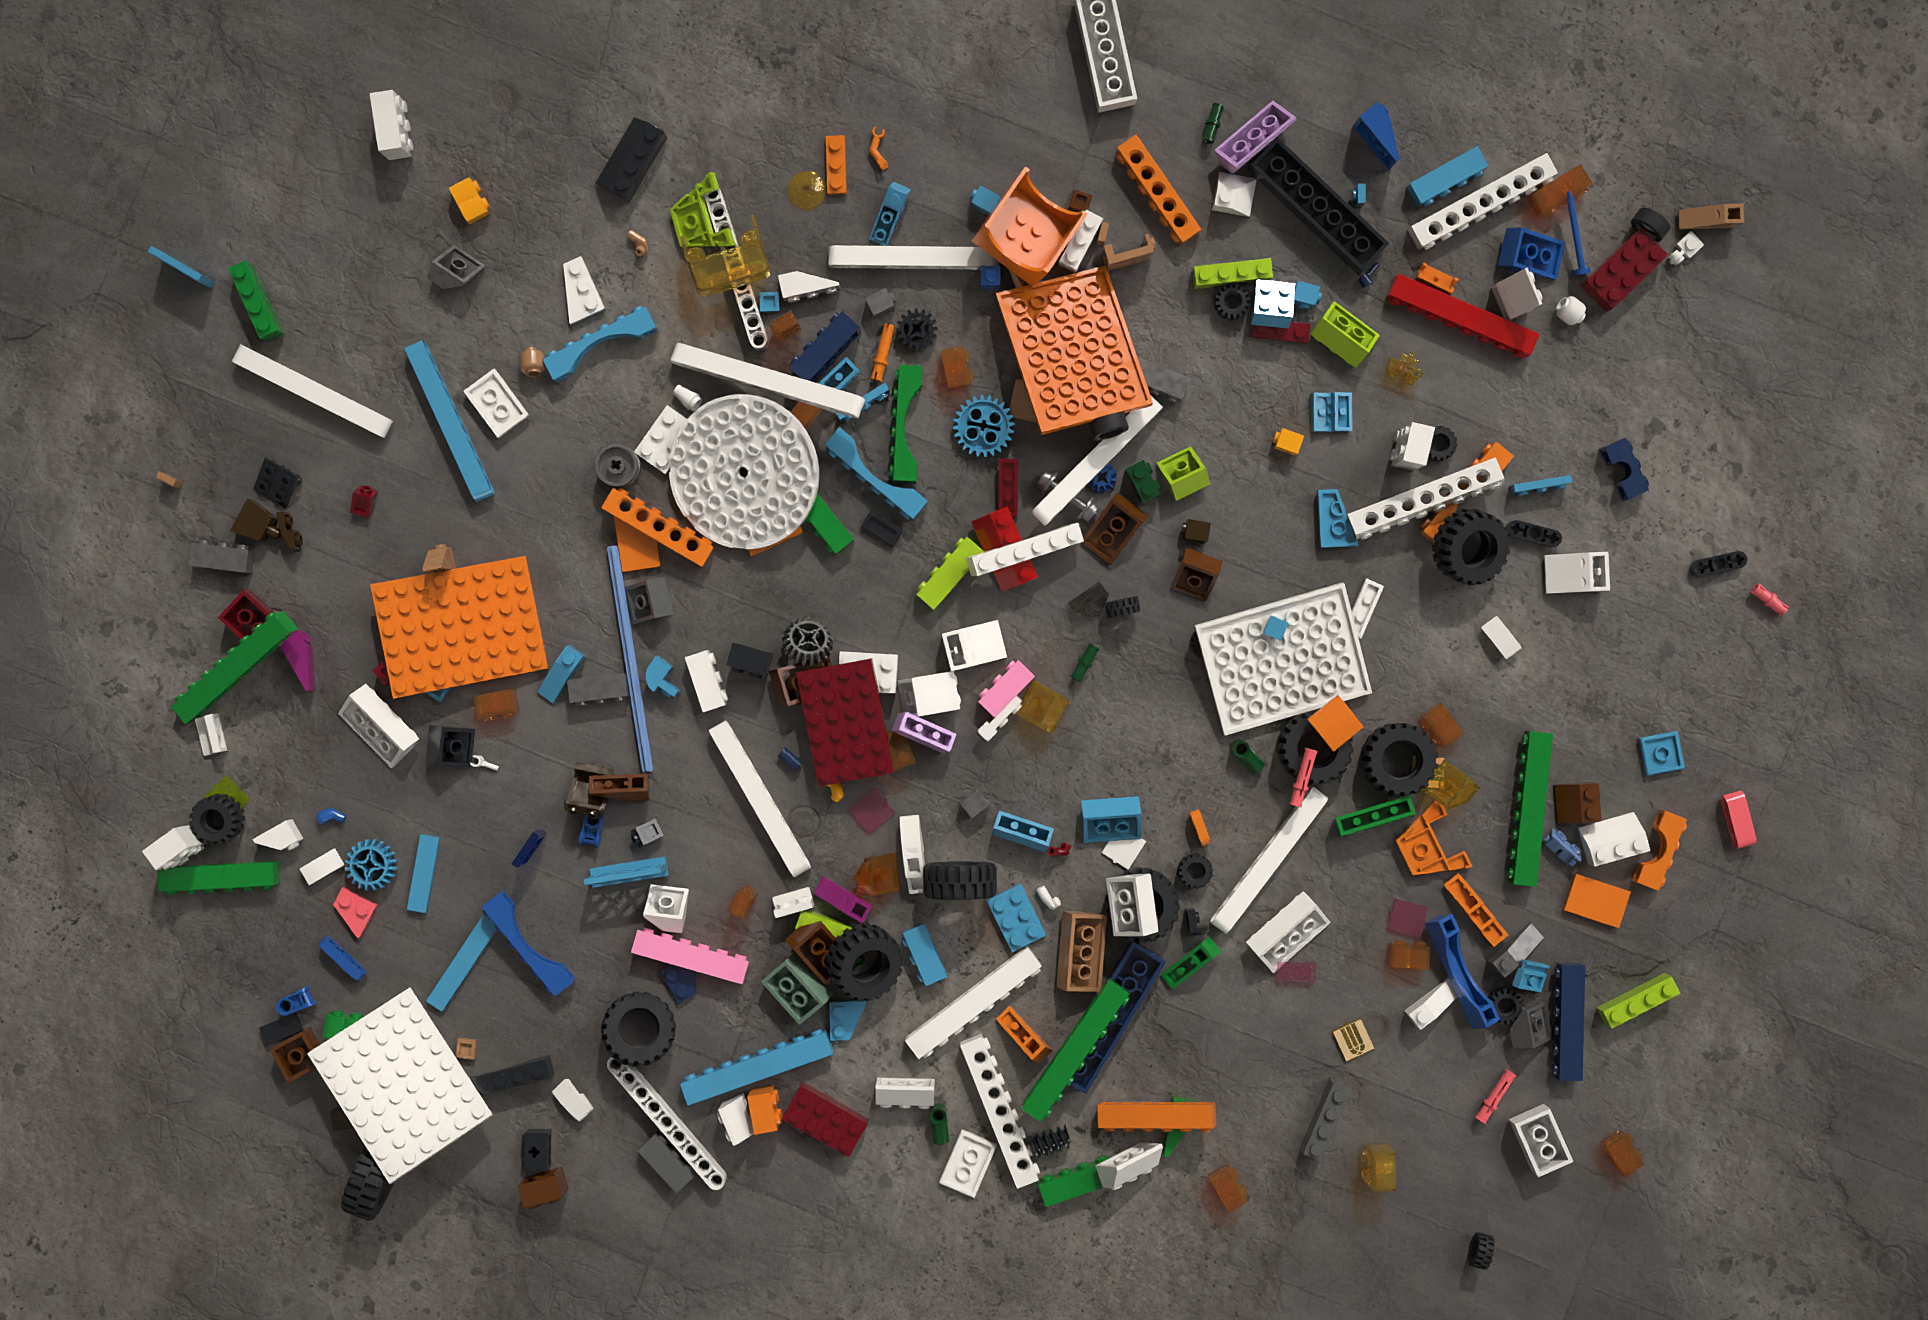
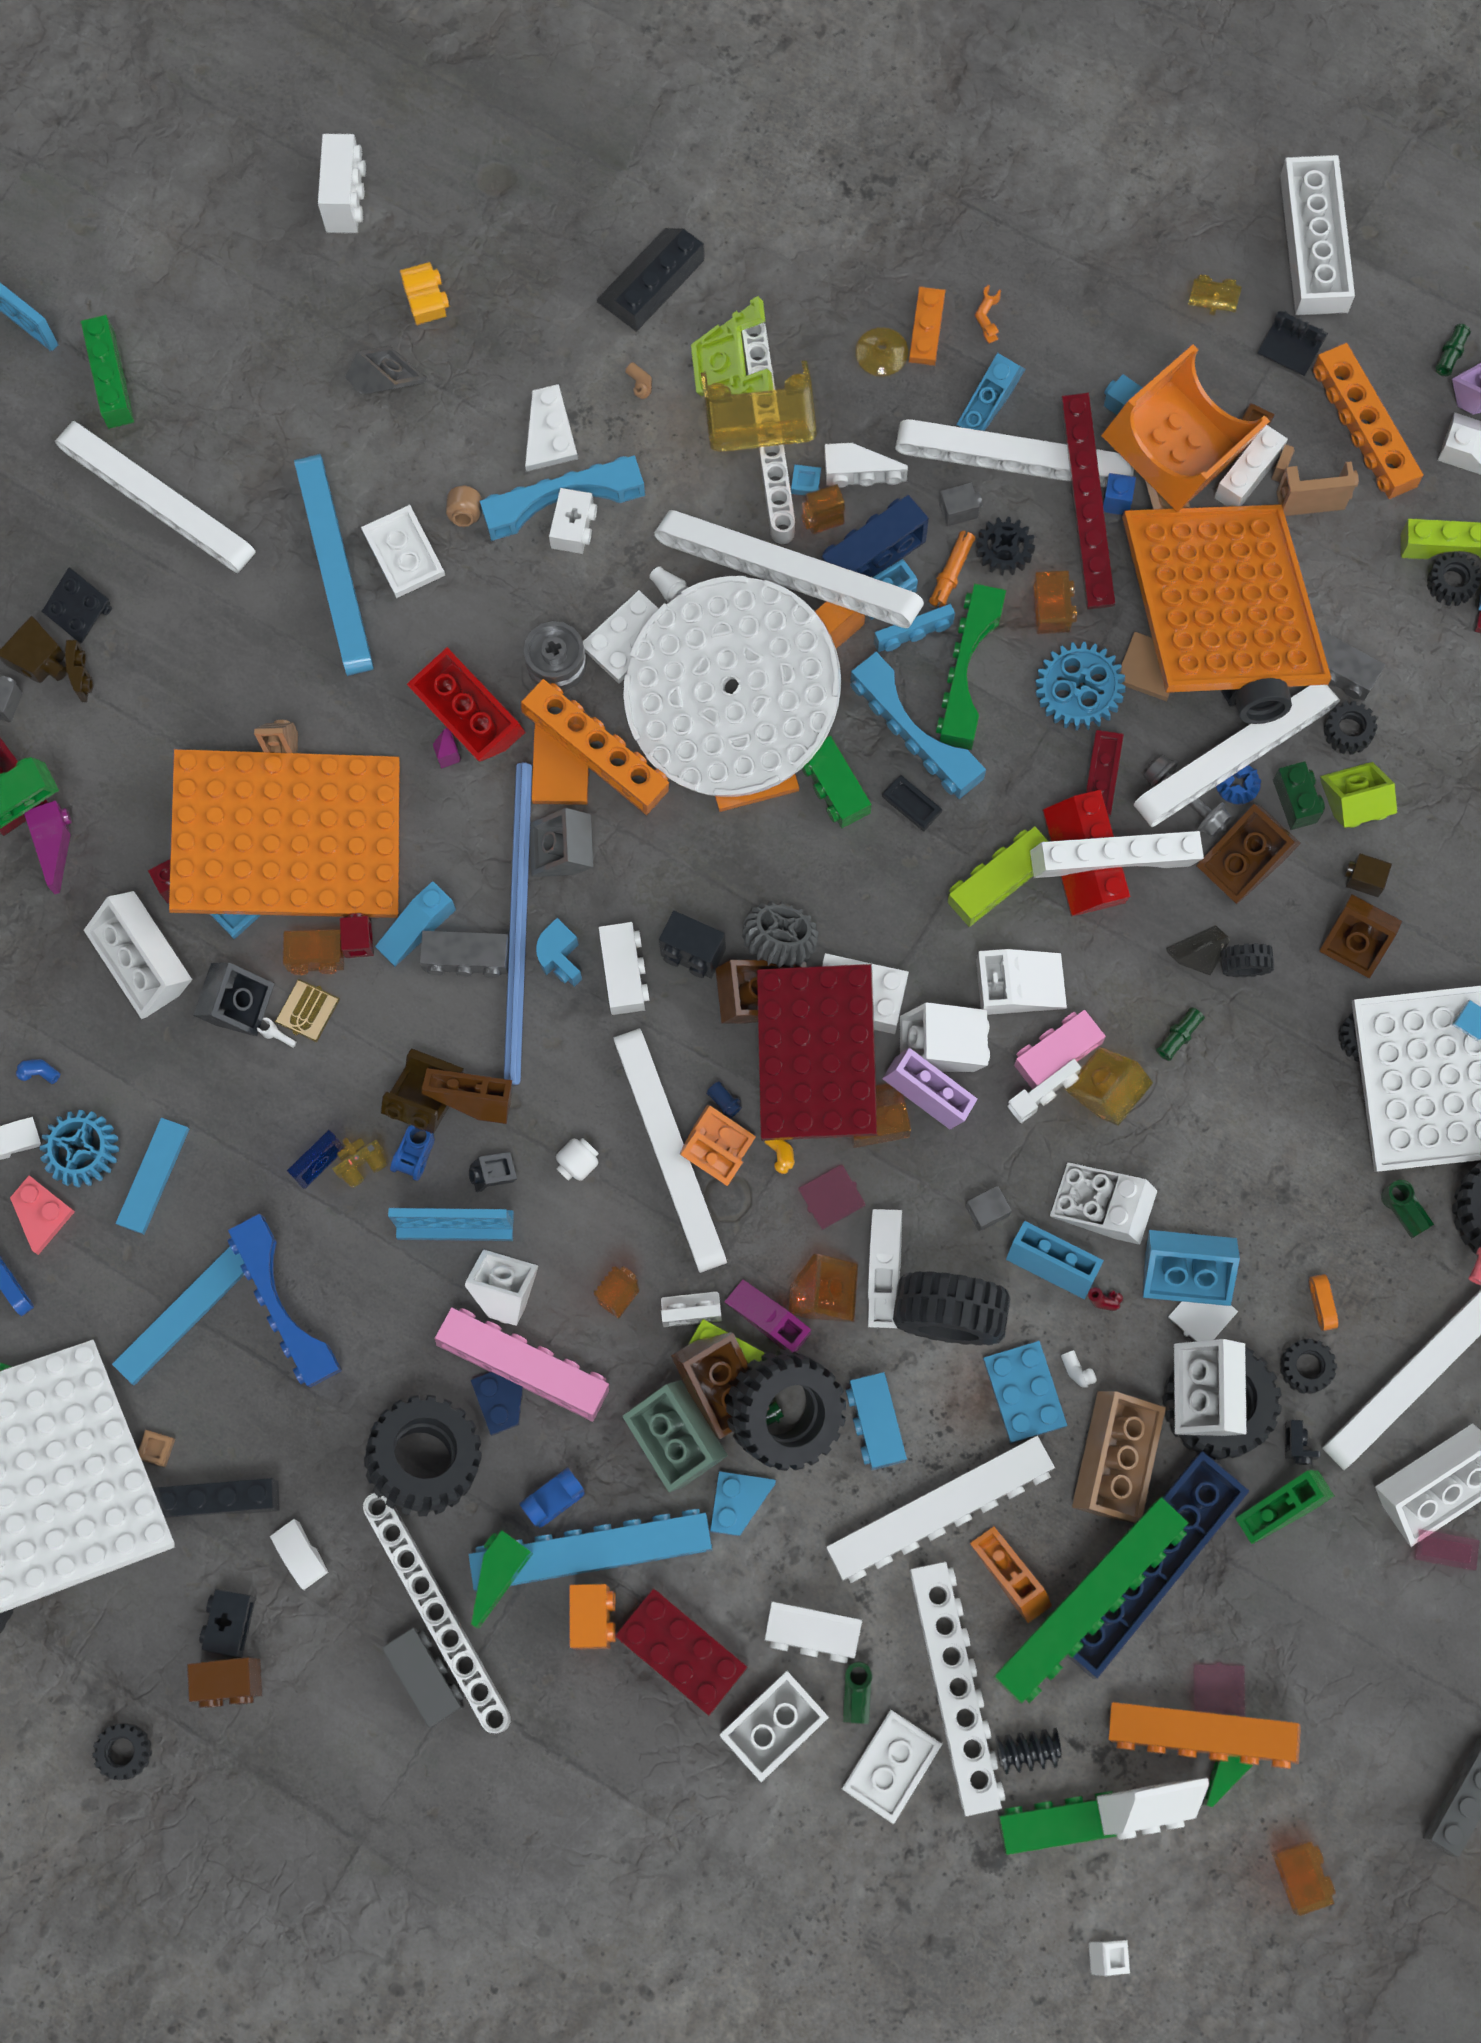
camera: 10 degrees right, 15 degrees down
(363, 501) = (189, 648): dark red bracket -> none
(480, 1246) = (106, 1740): none -> black tyre
(501, 743) = (307, 1010): none -> piece
(523, 688) = (356, 936): none -> dark red brick
(552, 849) = (369, 1154): none -> clear yellow hips
(556, 544) = (446, 749): none -> magenta slope
(563, 514) = (465, 706): none -> red slope
(605, 351) = (566, 533): none -> white brick
(700, 816) = (577, 1159): none -> white head
(700, 1092) = (499, 1569): none -> green slope
(725, 1039) = (553, 1498): none -> blue piece
(736, 1118) = (545, 1625): white slope -> none
(790, 791) = (717, 1145): none -> orange slope
(890, 1155) = (774, 1726): none -> white brick
(969, 287) = (1088, 501): none -> dark red plate
(1038, 109) = (1215, 294): none -> clear yellow hips
(1049, 786) = (1104, 1202): none -> white slope
(1098, 136) = (1292, 342): none -> black hinge
(1117, 1252) = (1109, 1957): none -> white slope
(1160, 425) = (1356, 713): none -> black tyre
(1164, 1083) = (1219, 1689): none -> clear pink piece

